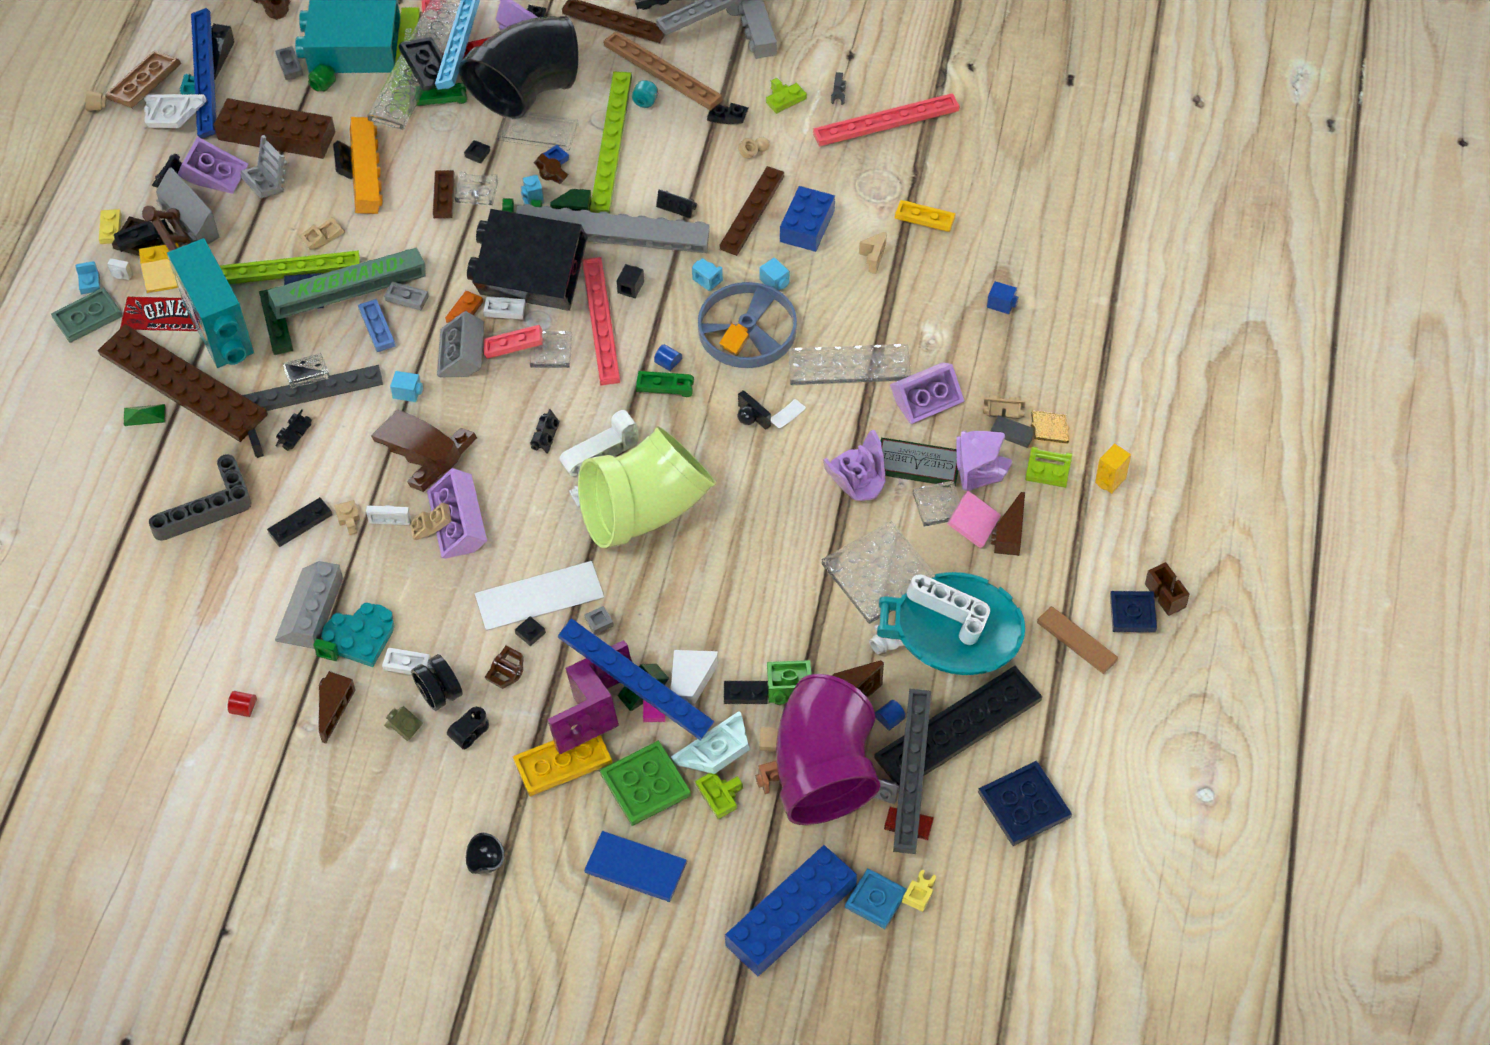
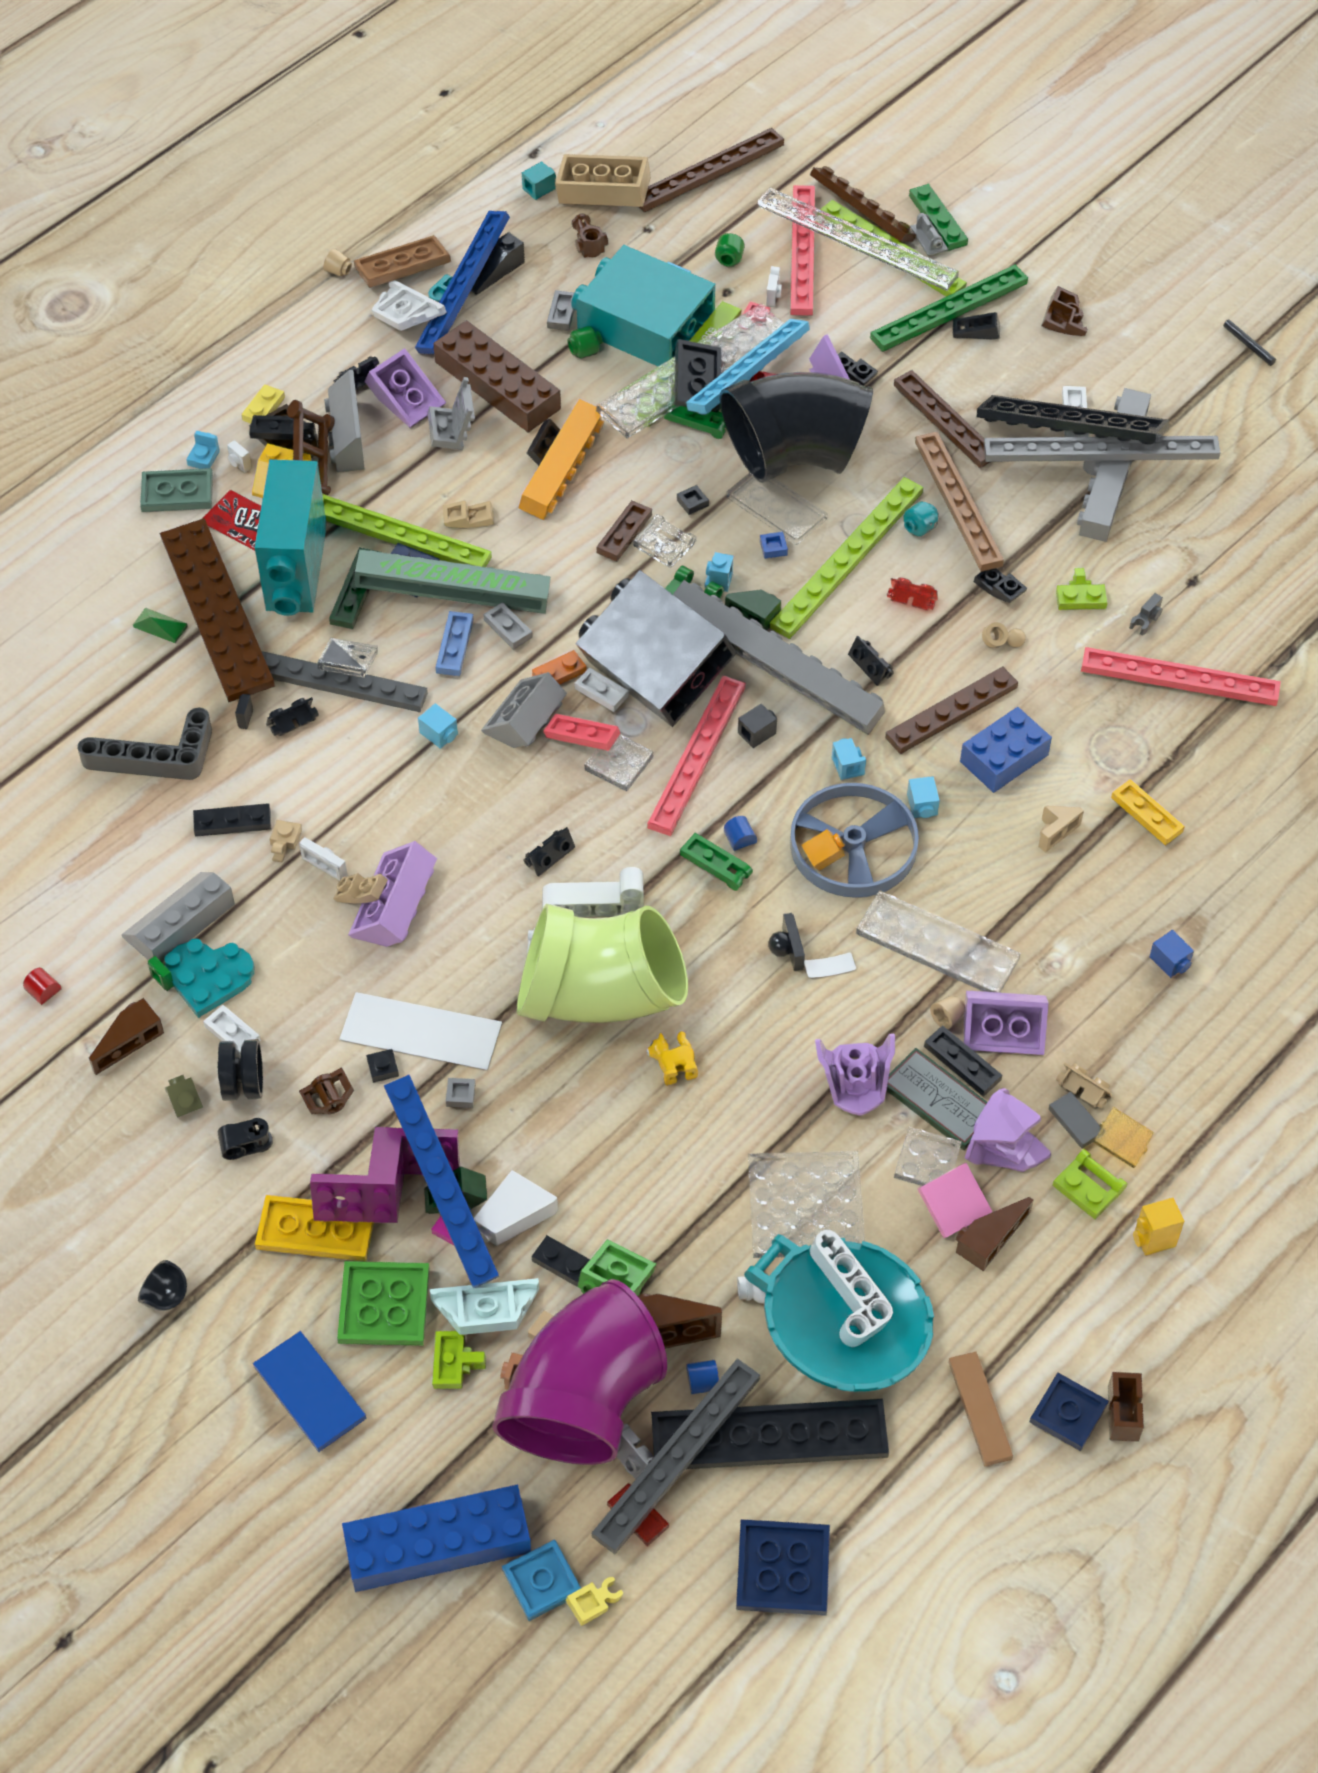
camera: 30 degrees right, 0 degrees up
(422, 446) = (410, 802): reddish brown slope -> none
(551, 167) = (755, 556): reddish brown piece -> none
(665, 146) = (905, 589): none -> clear red hinge
(729, 525) = (674, 1060): none -> yellow animal
(886, 404) = (947, 1011): none -> tan hat
(917, 430) = (963, 1060): none -> black plate

